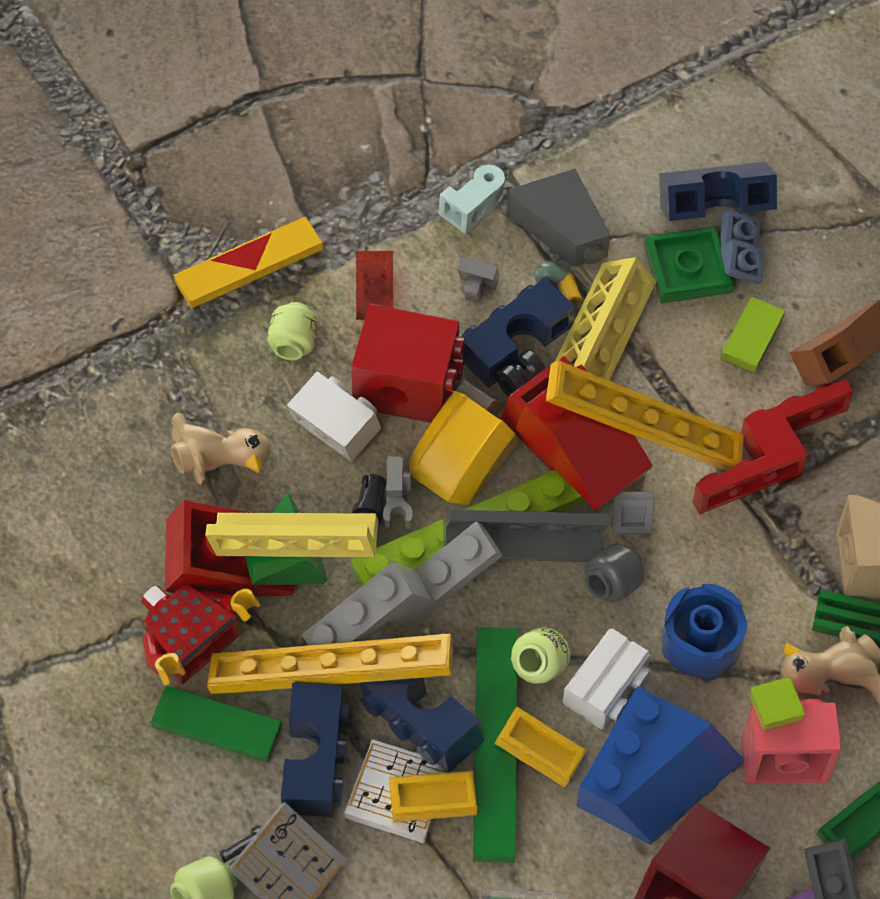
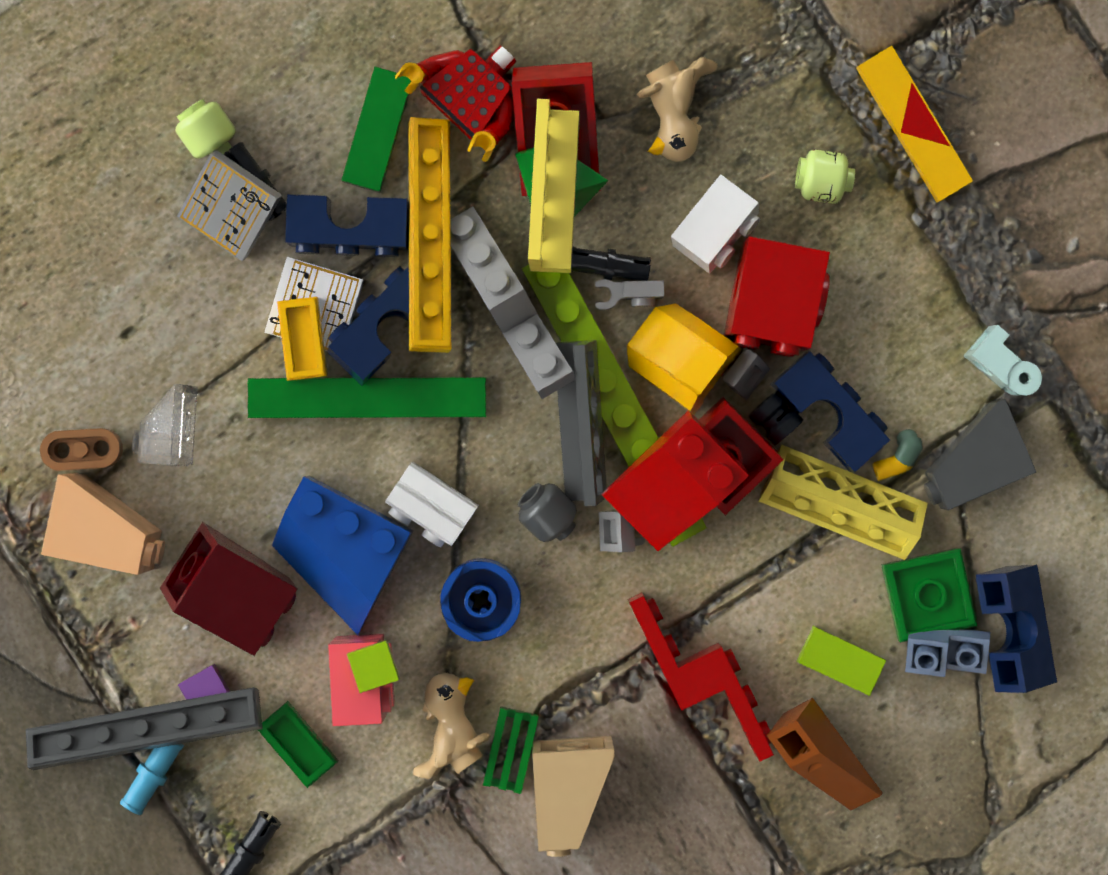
camera: 90 degrees right, 30 degrees up
(373, 280) = (887, 259): clear red plate -> none
(477, 275) = (900, 369): light grey tile -> none
(540, 655) = (450, 439): yellowish green head -> none
(540, 747) = (359, 440): yellow tile -> none
(643, 416) = (700, 541): yellow tile -> none

